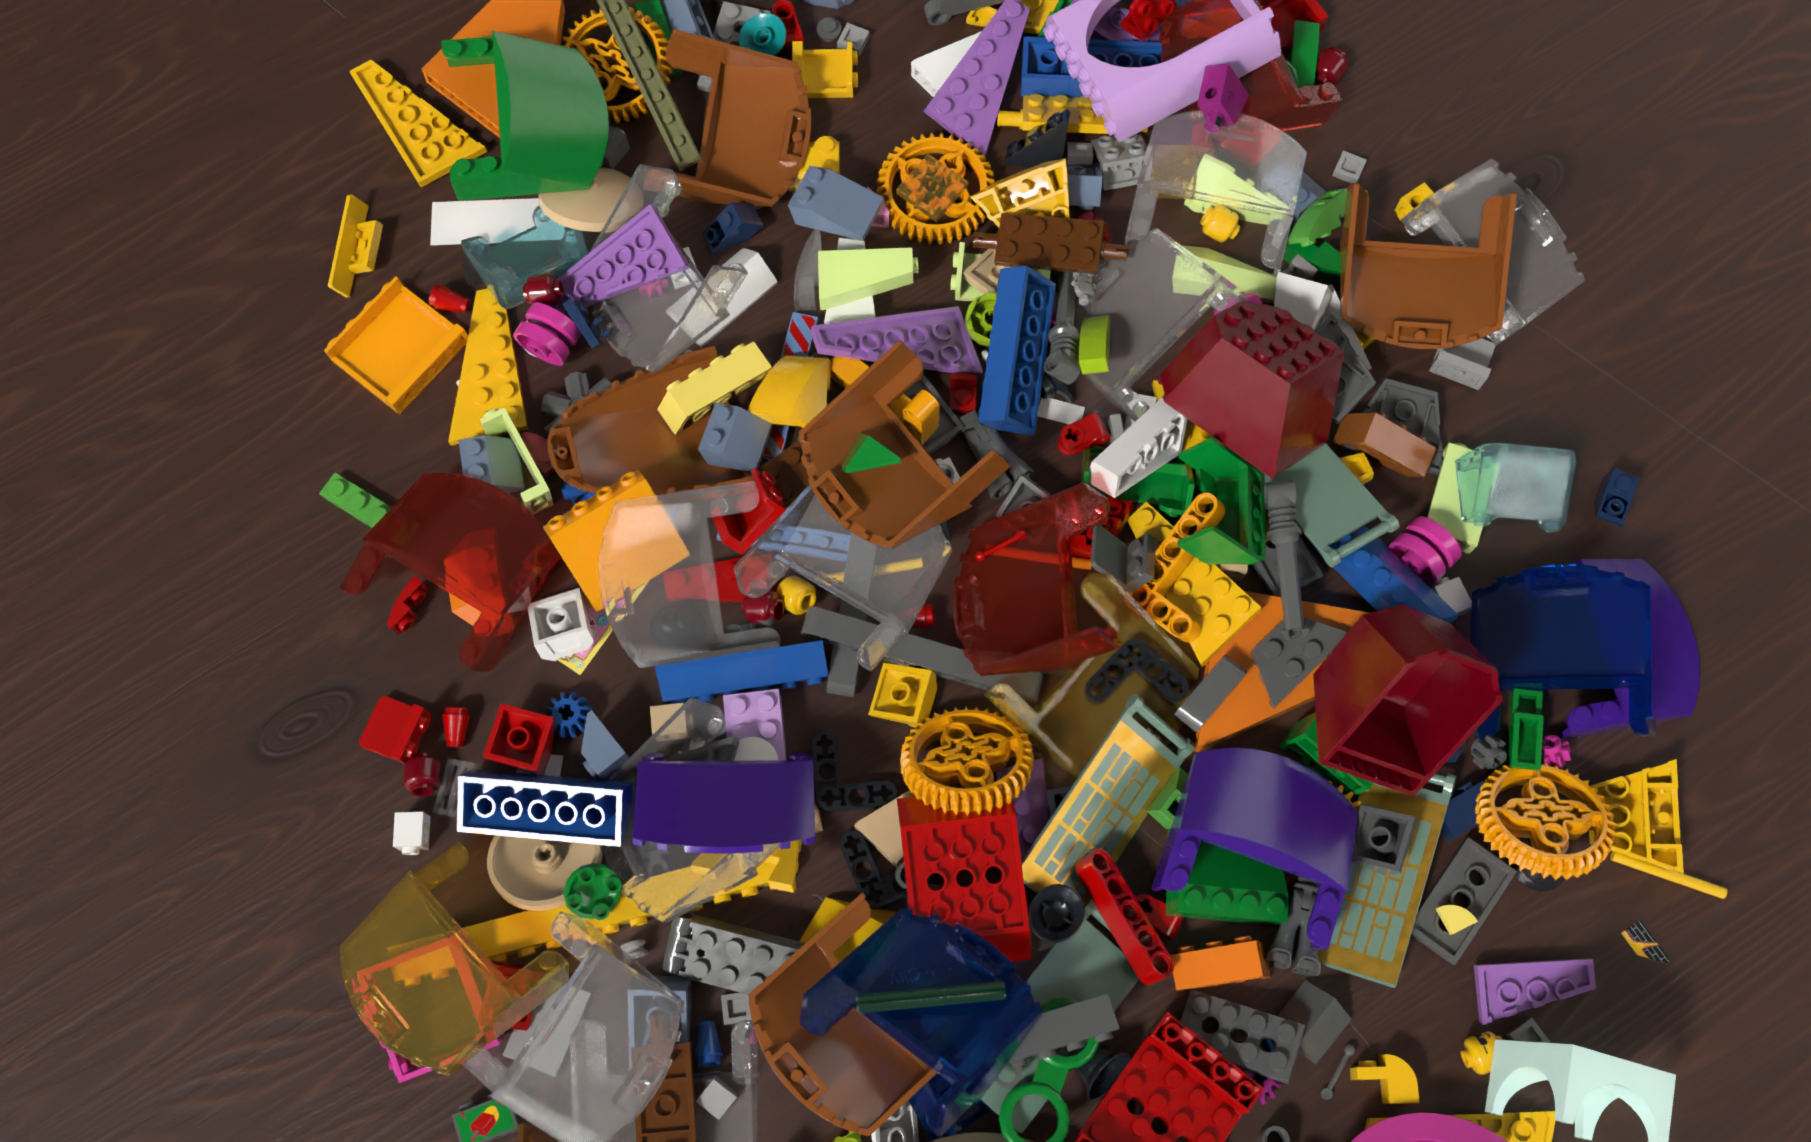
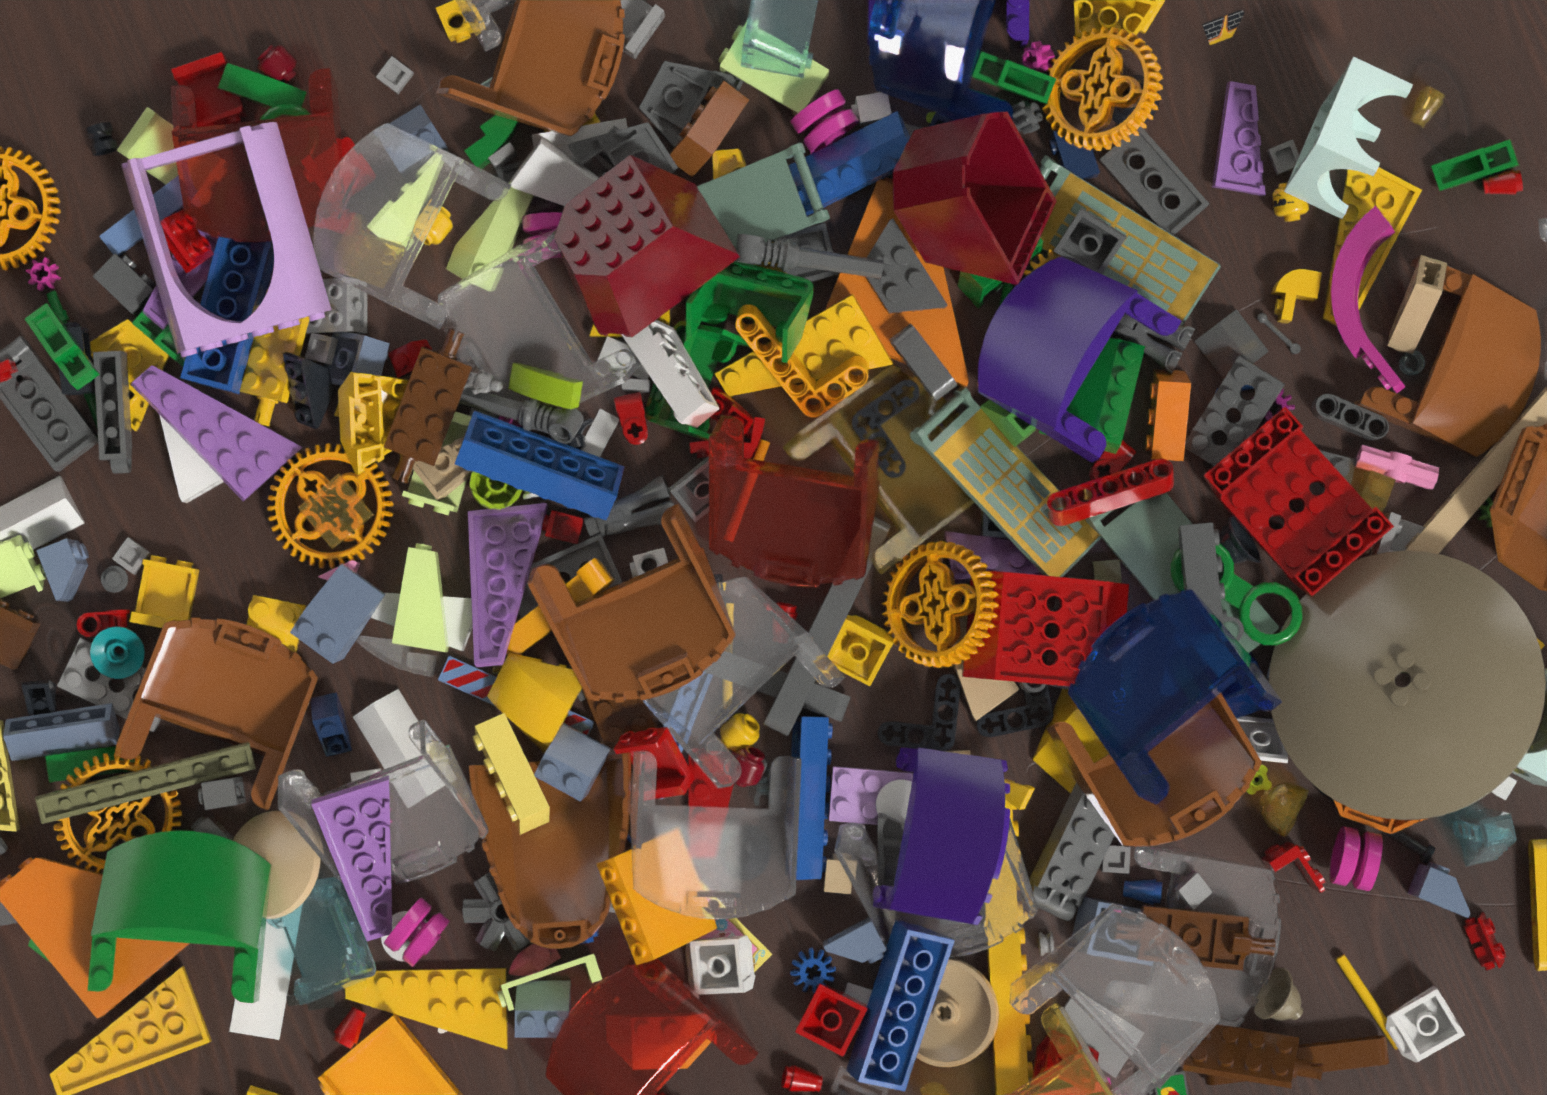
camera: 80 degrees left, 15 degrees up
(543, 289) = (369, 929): dark red head -> none
(578, 313) = (404, 897): dark blue plate -> none
(592, 891) = (992, 972): green dish -> none
(650, 143) = (222, 793): none -> dark grey brick
(868, 454) = (631, 637): green slope -> none
(931, 997) = (1156, 684): clear green axle -> none
(980, 555) = (739, 547): red hinge -> none
(1056, 913) = (1098, 554): black hat -> none
(1128, 564) = (780, 413): dark grey bracket -> none
(1221, 97) = (319, 198): magenta torso -> none
(1320, 218) = (453, 122): bright green slope -> none
(1455, 918) = (1170, 193): light yellow tile -> none

